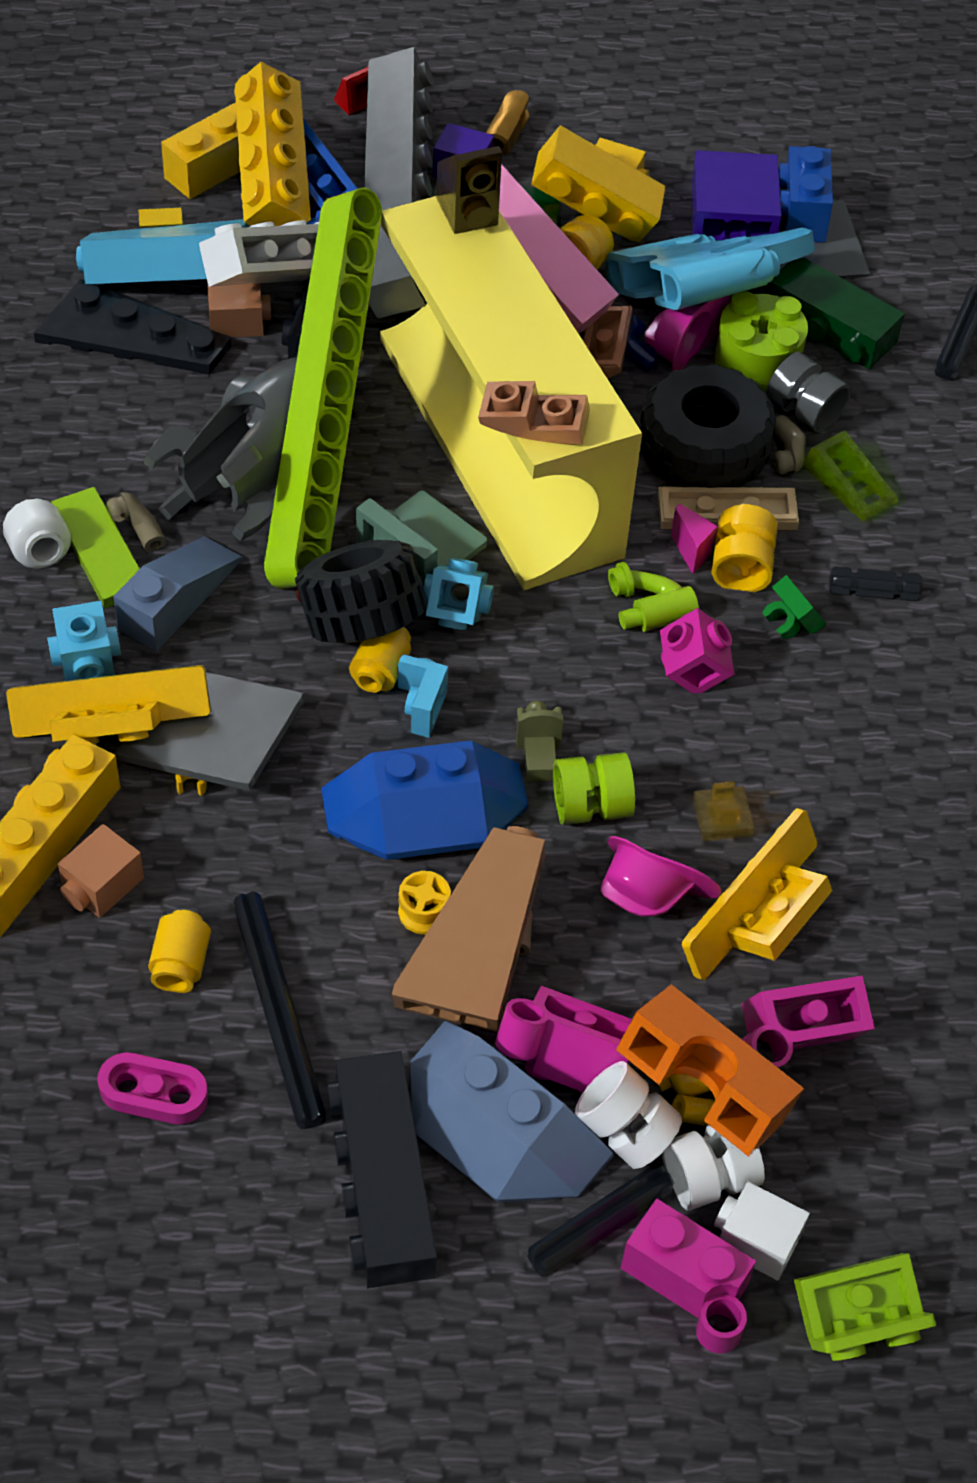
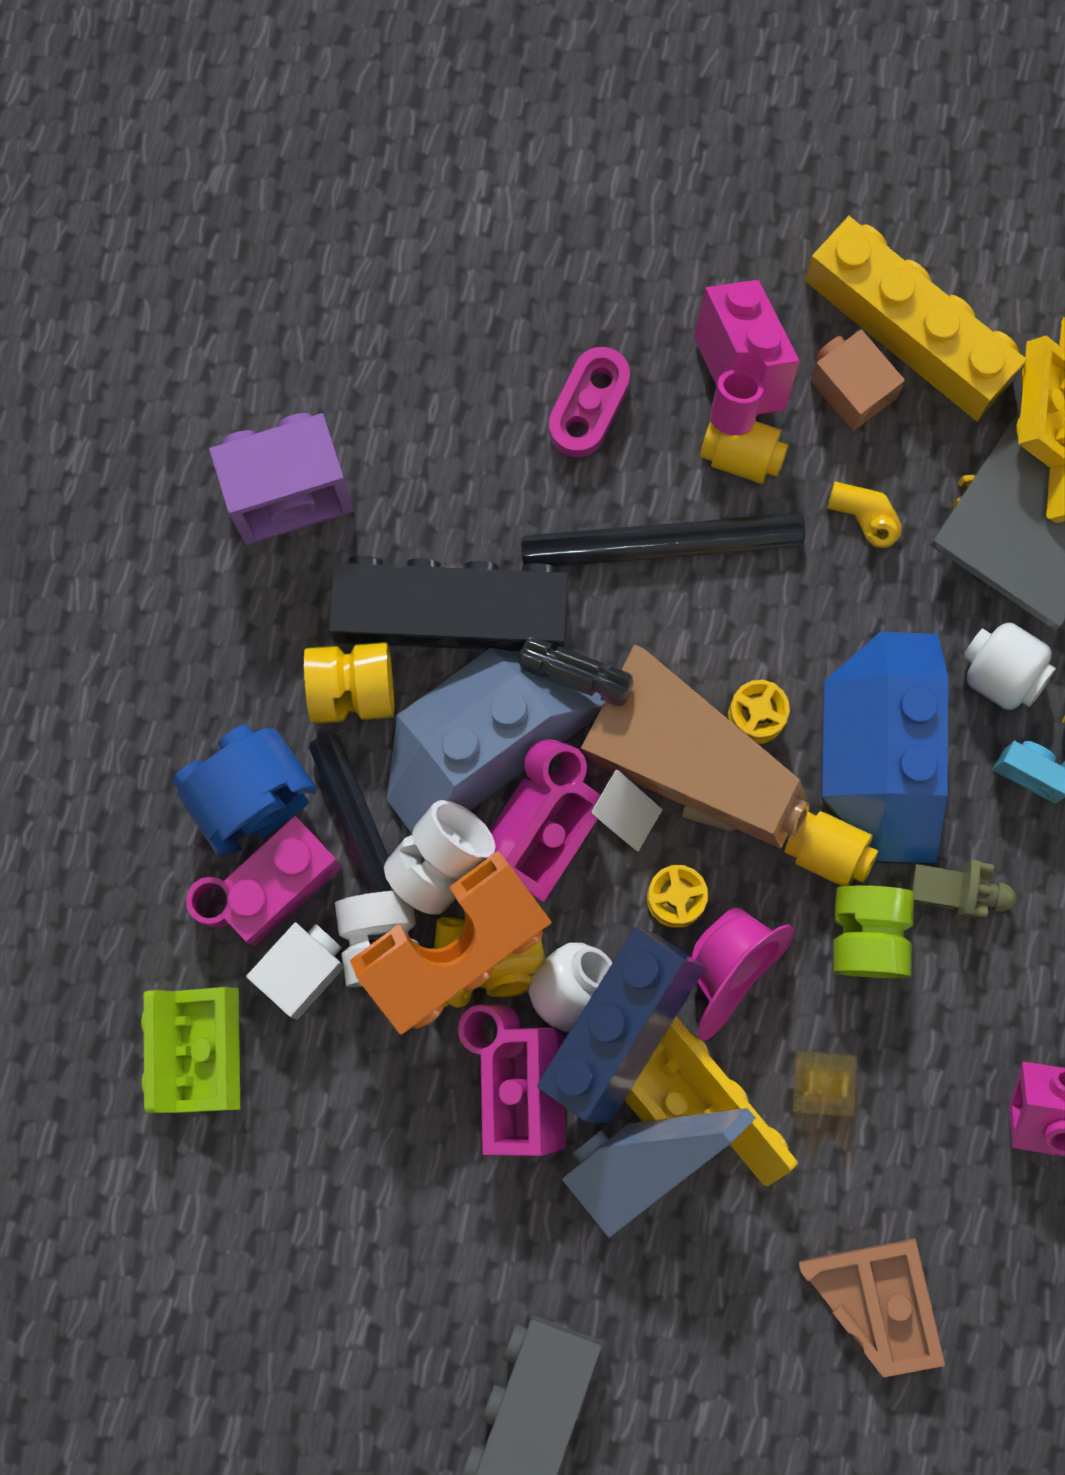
camera: 110 degrees right, 25 degrees up
(96, 950) = (744, 355): none -> dark pink hinge
(221, 848) = (871, 510): none -> yellow arm
(290, 1333) = (281, 477): none -> medium lavender brick
(343, 726) = (1008, 666): none -> white head
(429, 1031) = (576, 671): none -> black axle
(475, 1229) = (349, 682): none -> yellow wheel
(538, 813) = (832, 849): none -> yellow brick
(541, 980) = (626, 810): none -> white sticker
(605, 925) = (684, 884): none -> yellow wheel
(611, 1300) = (244, 788): none -> blue brick
(712, 987) = (567, 983): none -> white head
(736, 931) = (621, 1026): none -> dark blue brick
(834, 901) = (646, 1161): none -> sand blue slope
(878, 748) = (882, 1302): none -> nougat wing

